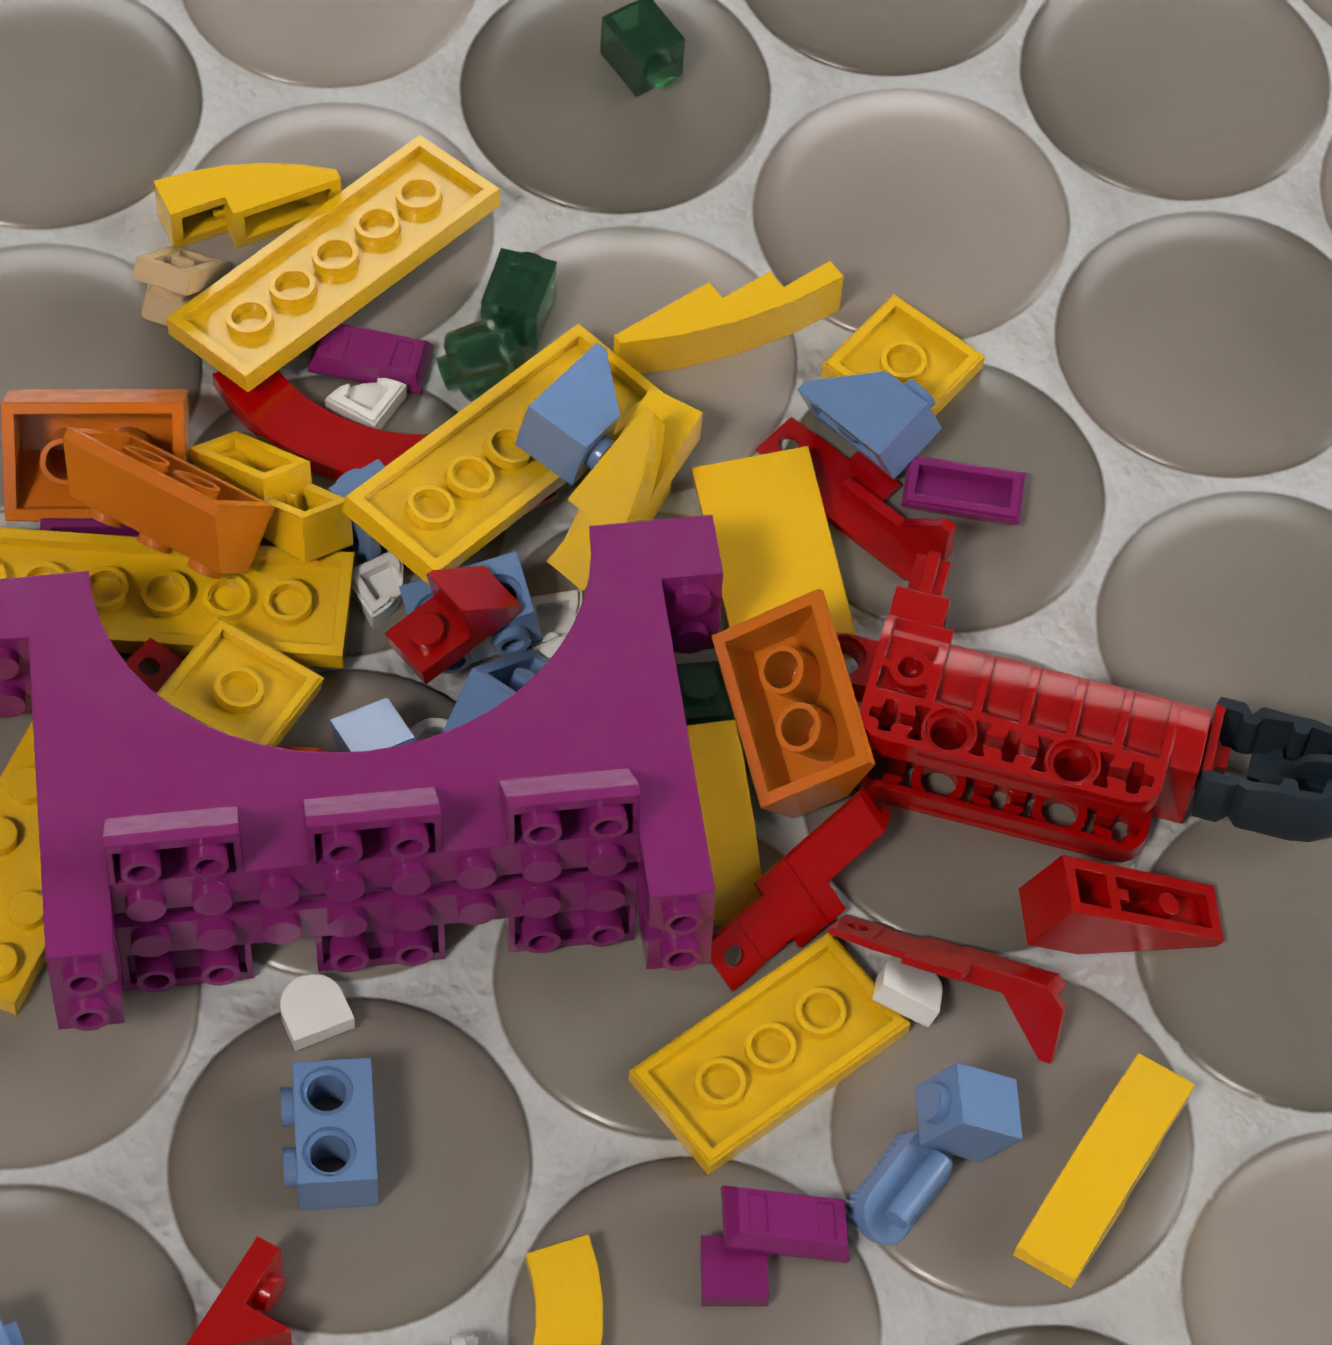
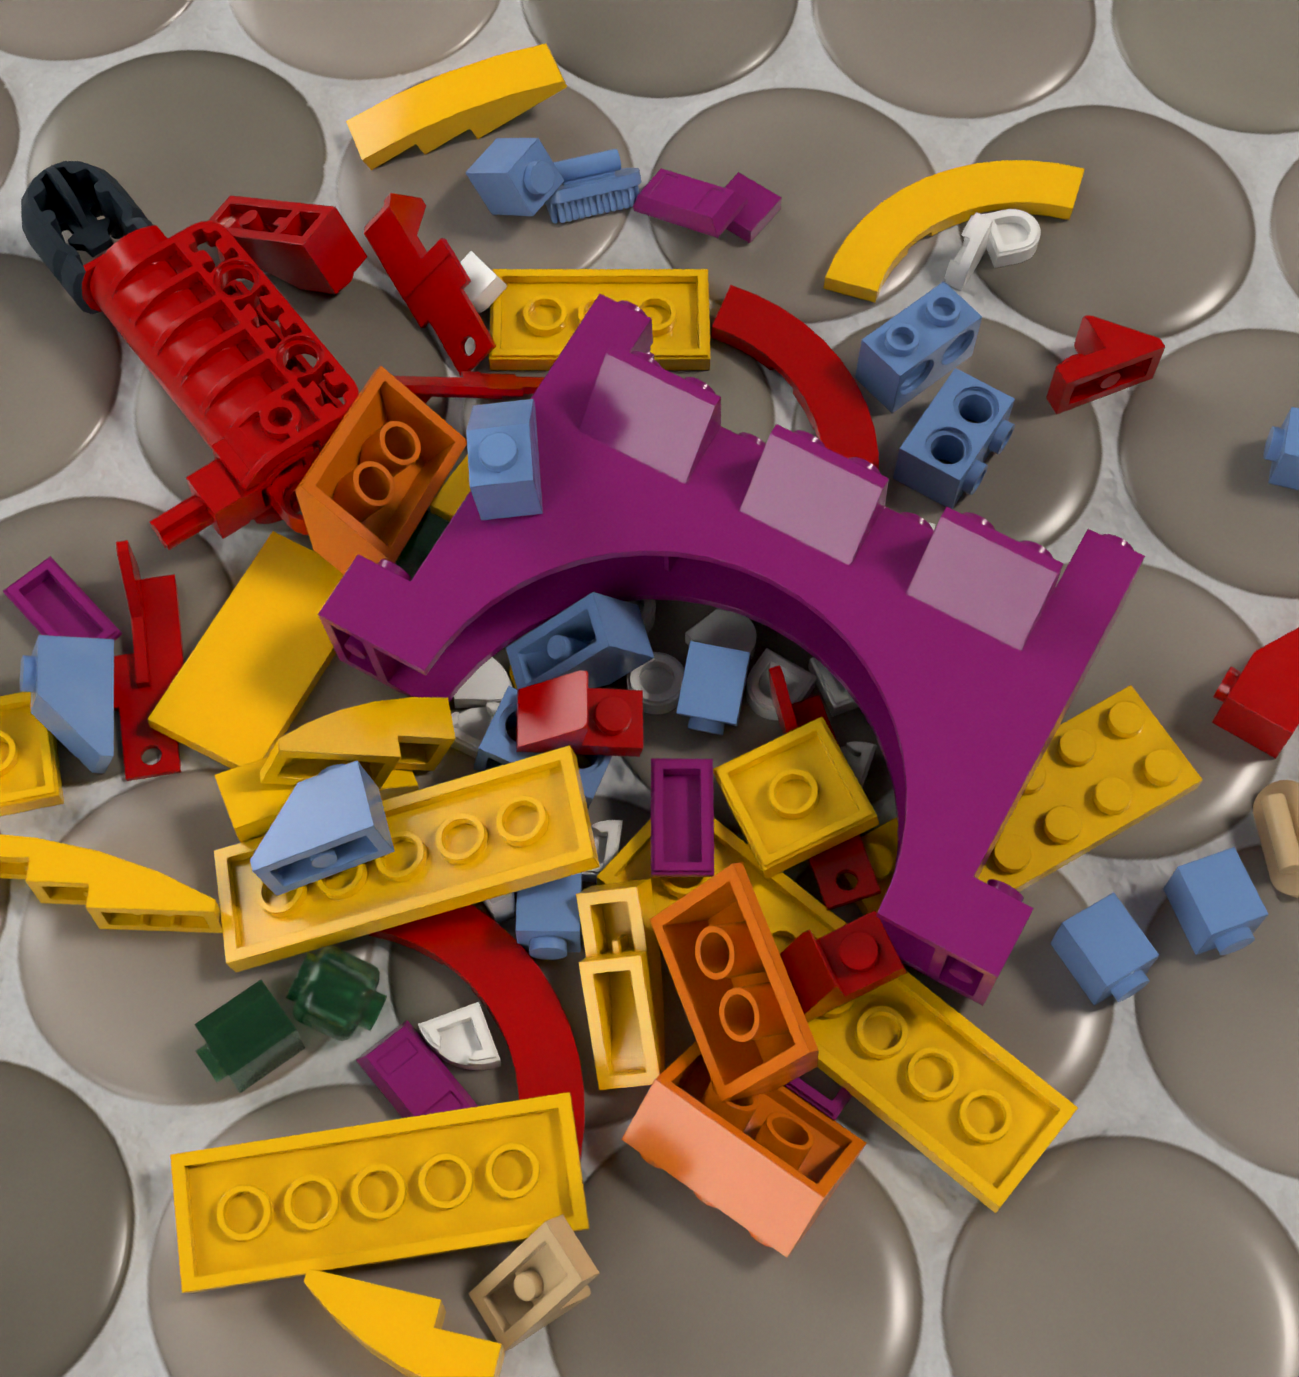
camera: 140 degrees left, 5 degrees up
(116, 567) = (841, 964): none -> red slope
(317, 622) = (682, 817): none -> magenta tile
(436, 1203) = (917, 347): none -> medium blue brick
(495, 1116) = (808, 365): none -> red tile
(664, 685) = (504, 459): none -> medium blue slope

